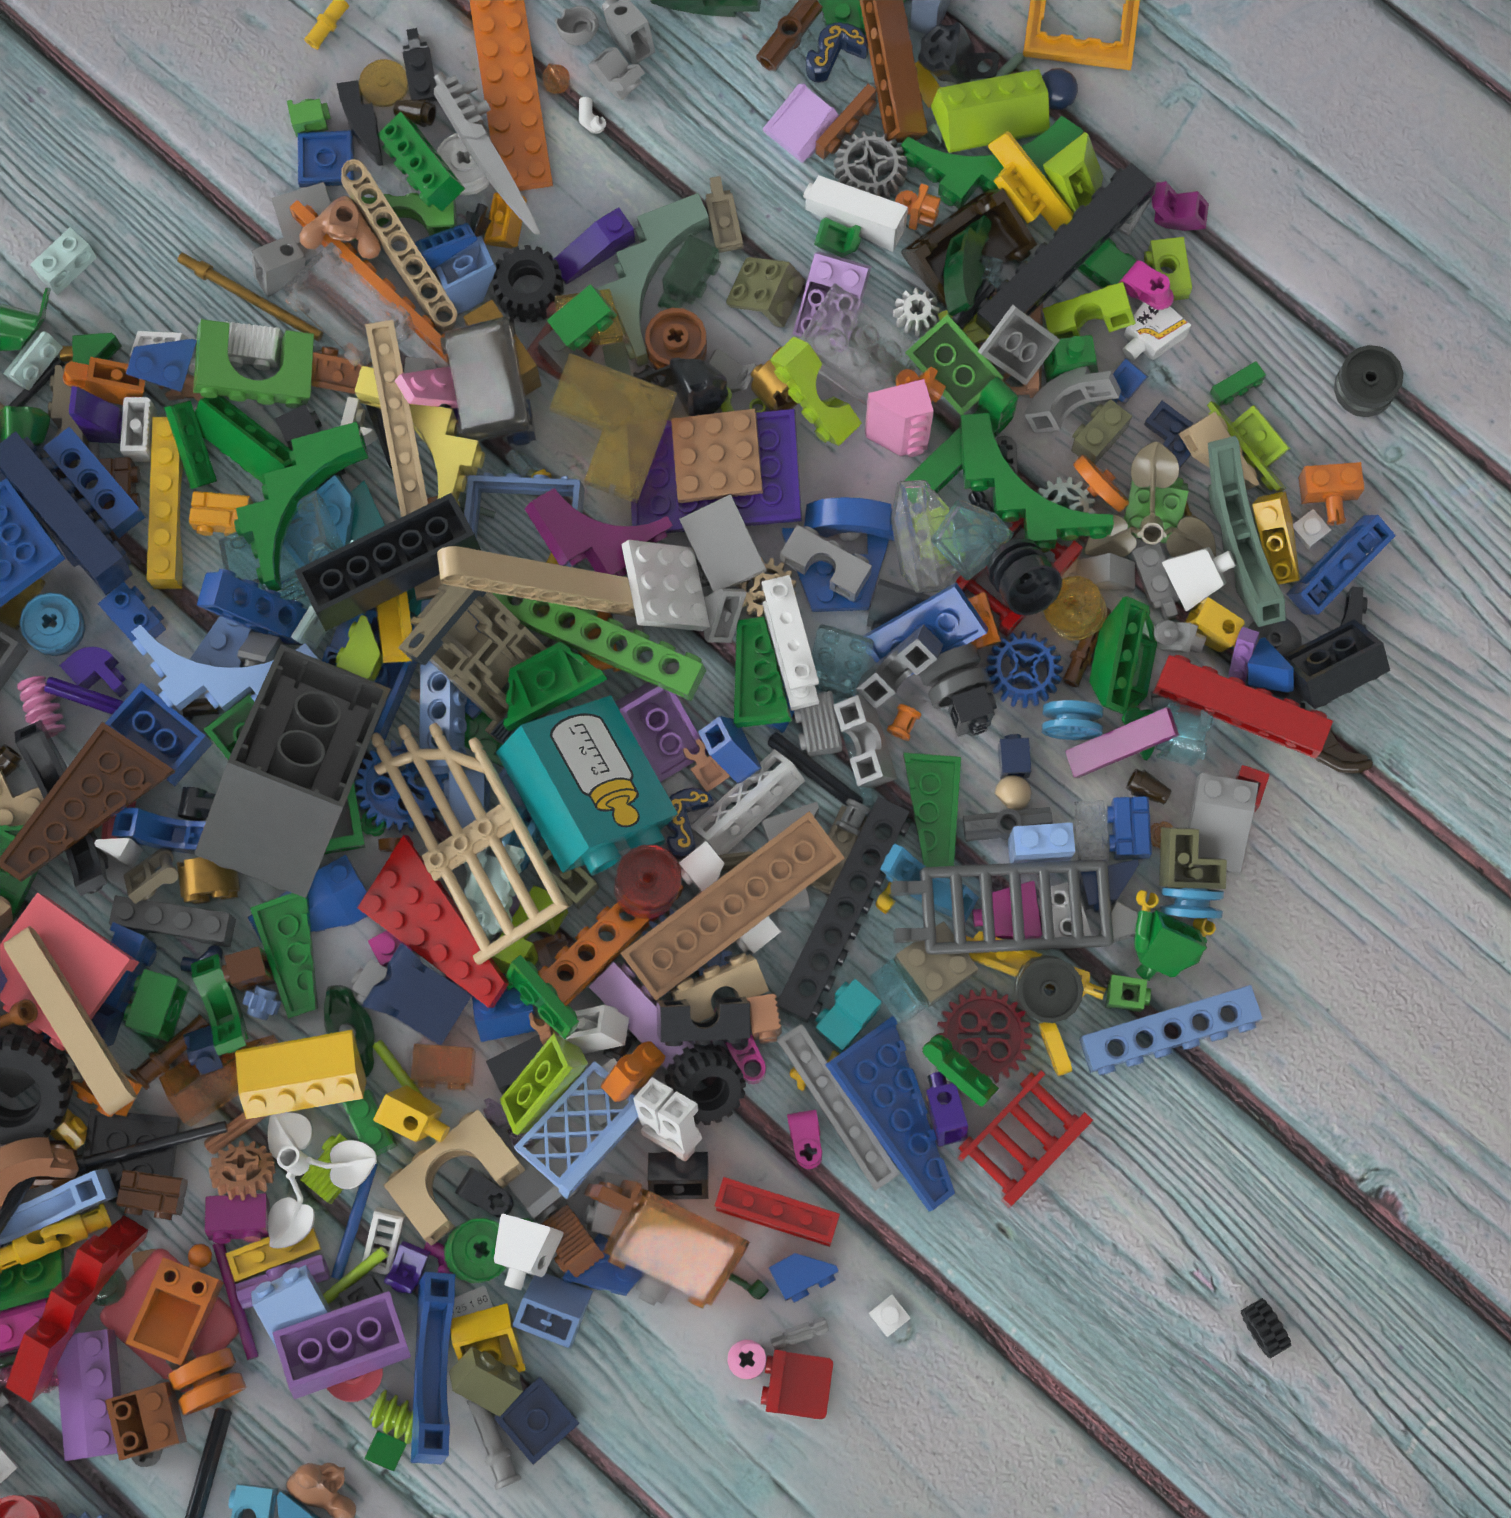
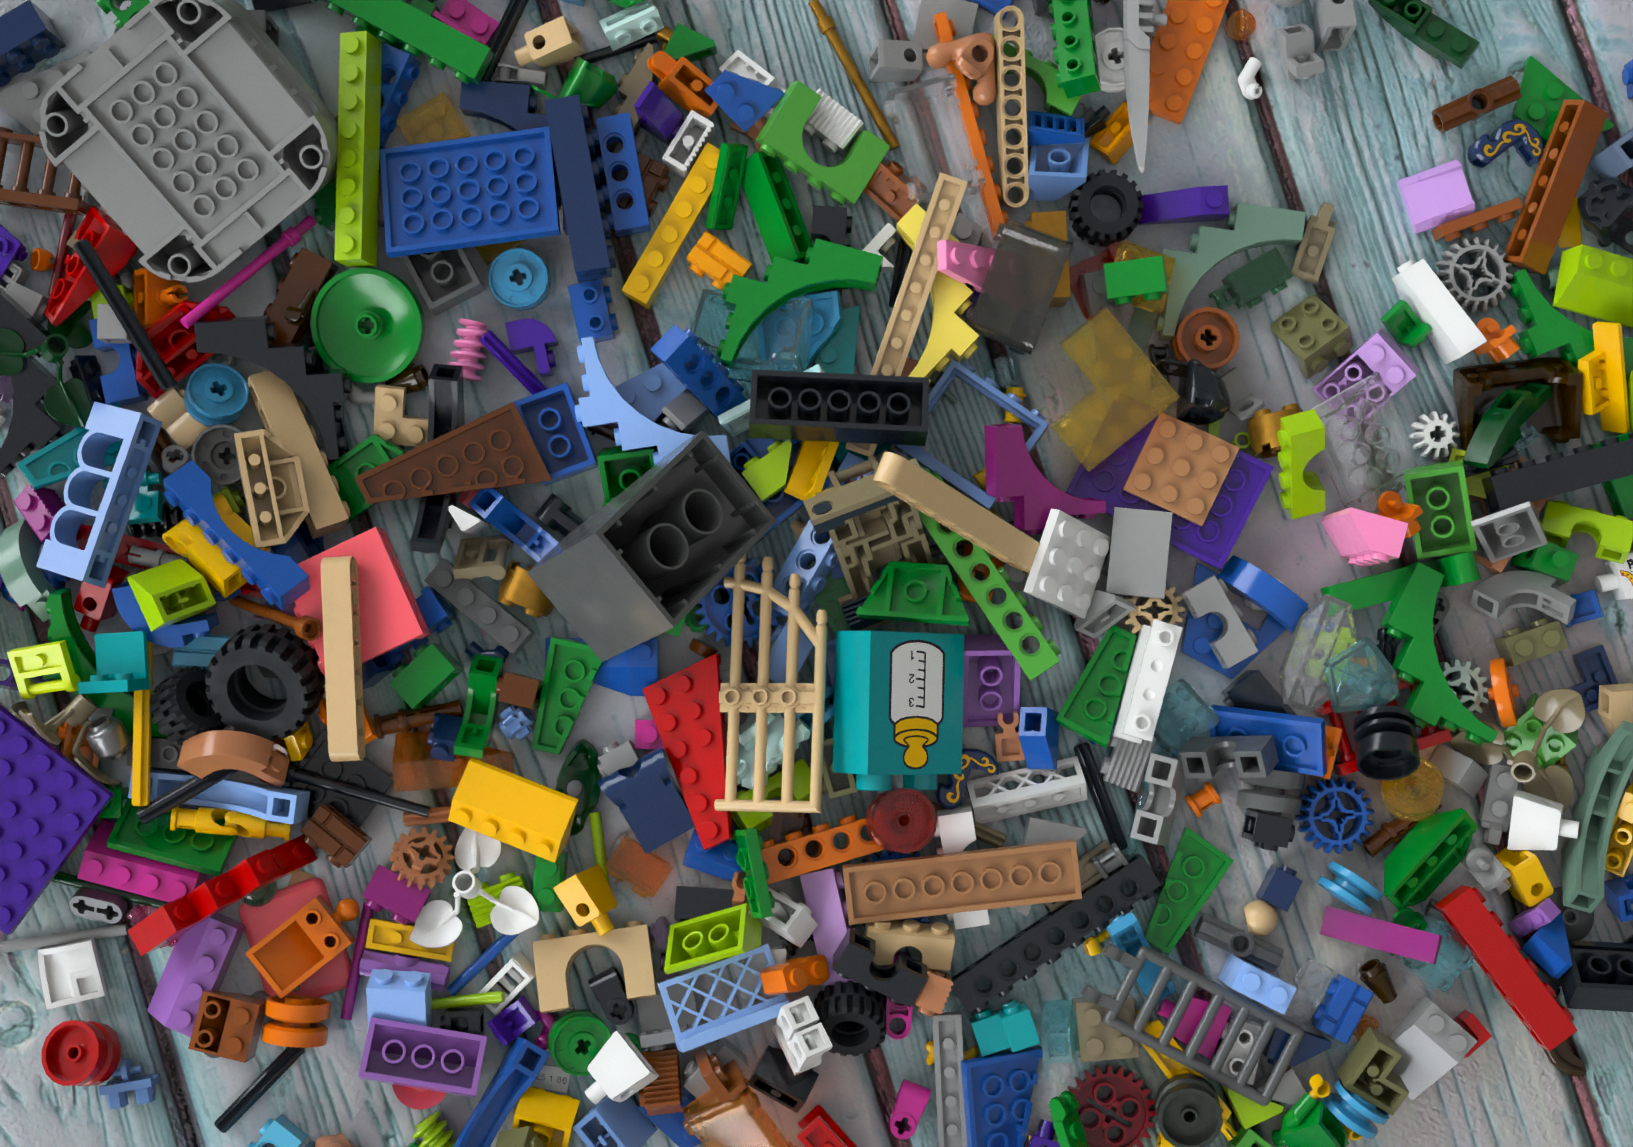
camera: 25 degrees right, 10 degrees up
(1101, 960) = (1249, 1112): none -> lime slope

